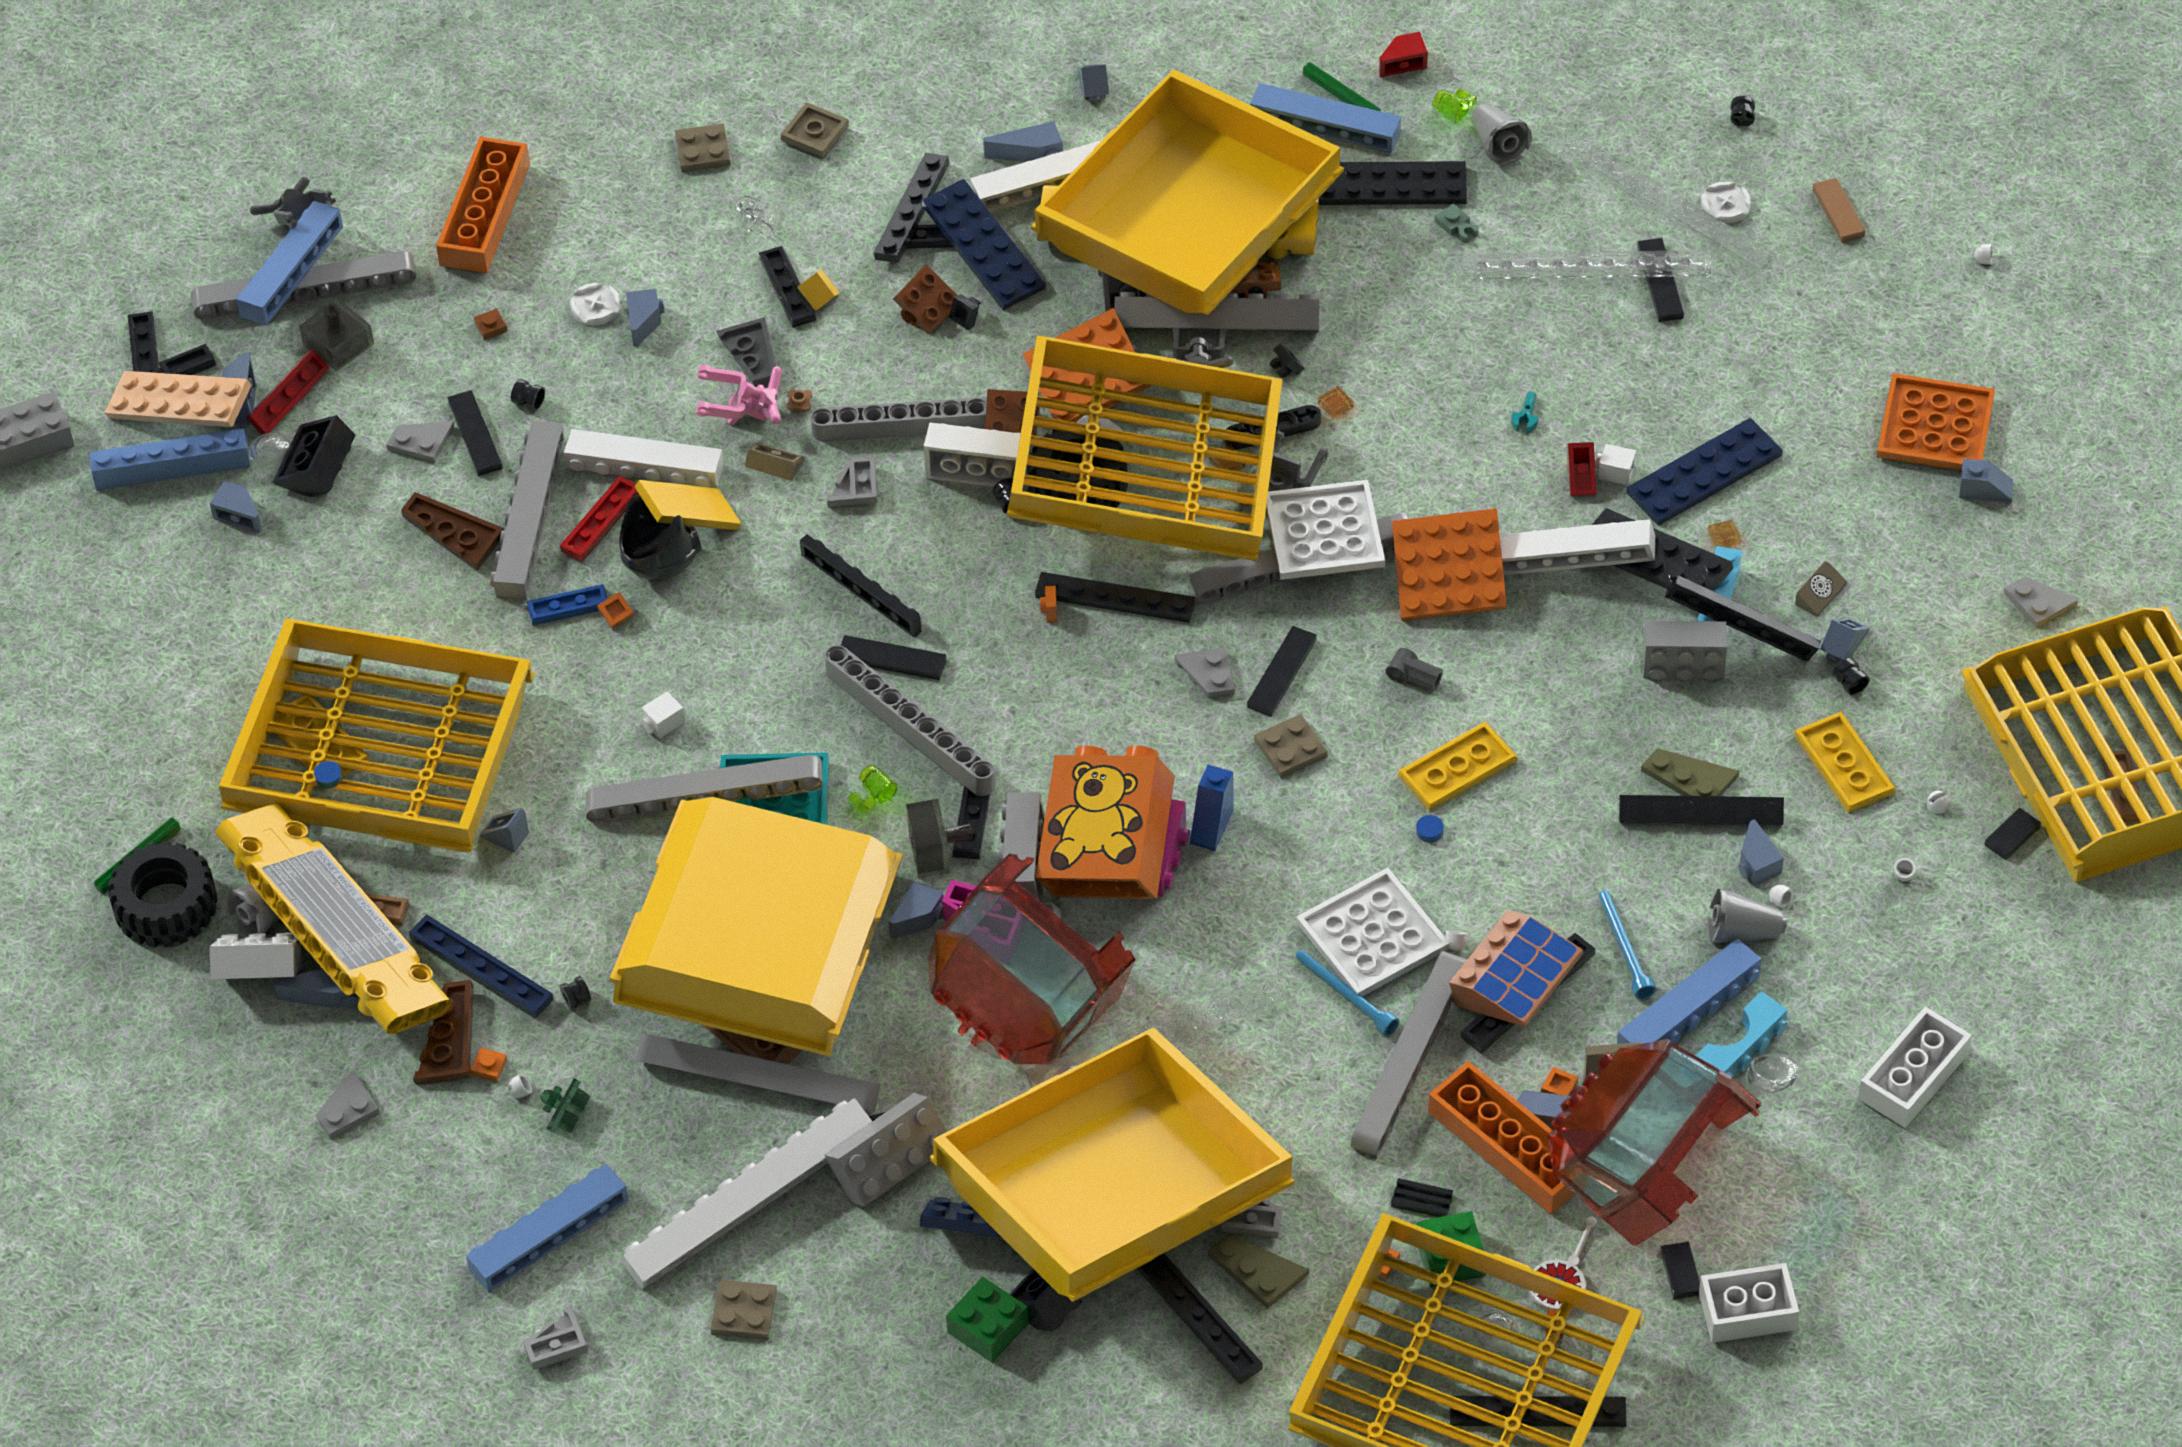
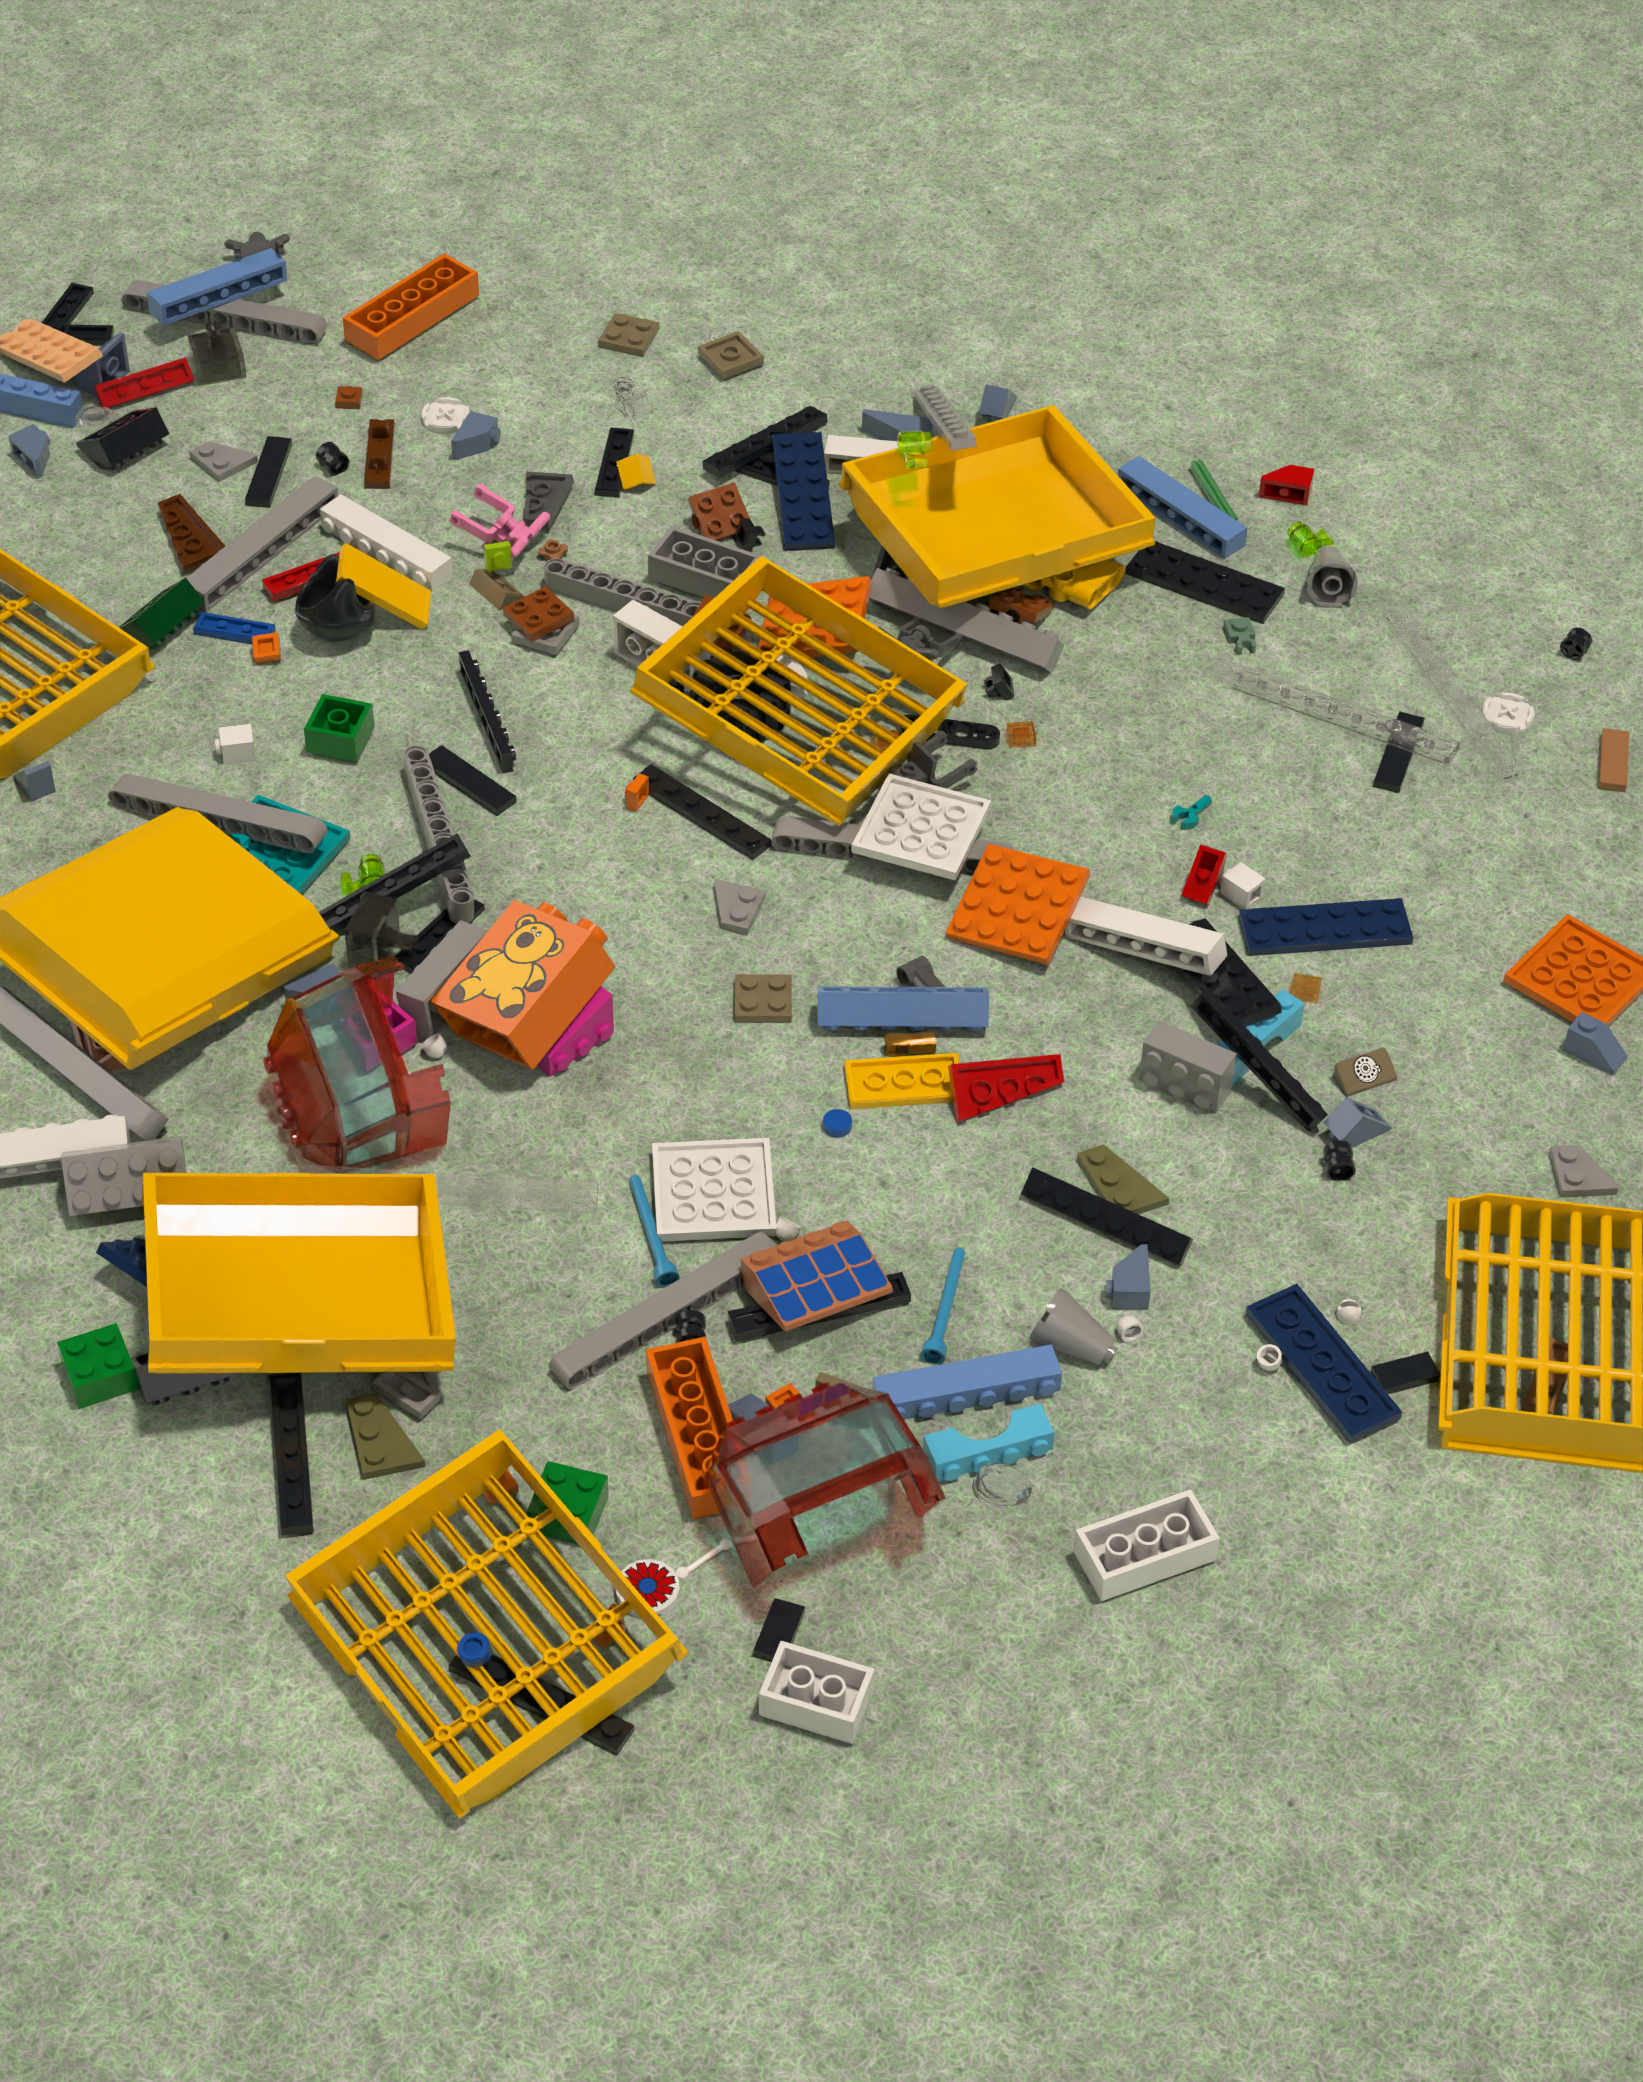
camera: 25 degrees right, 5 degrees down
(494, 618) = (164, 614): none -> dark green slope
(564, 370) = (379, 454): none -> reddish brown hinge
(746, 659) = (339, 727): none -> green brick
(762, 429) = (497, 556): none -> lime plate
(839, 470) = (538, 614): none -> dark orange plate
(918, 780) = (399, 880): none -> black plate
(953, 359) = (696, 562): none -> light grey brick
(1081, 122) = (945, 418): none -> light grey plate
(1088, 164) = (914, 443): none -> clear neon green piece
(1212, 807) = (644, 1014): blue slope -> none
(1281, 671) = (803, 933): black tile -> none
(1417, 701) = (903, 1007): none -> medium blue brick
(1422, 1193) = (586, 1436): black tile -> none
(1440, 731) = (912, 1043): none -> pearl gold bar
(1441, 1060) = (690, 1325): none -> black wheel
(1471, 1398) = (474, 1649): none -> blue tile
(1487, 1341) = (562, 1594): clear hat -> none
(1540, 732) = (994, 1083): none -> red wing
(1844, 762) = (1281, 1236): yellow tile -> none
(1947, 854) = (1324, 1363): none -> dark blue plate

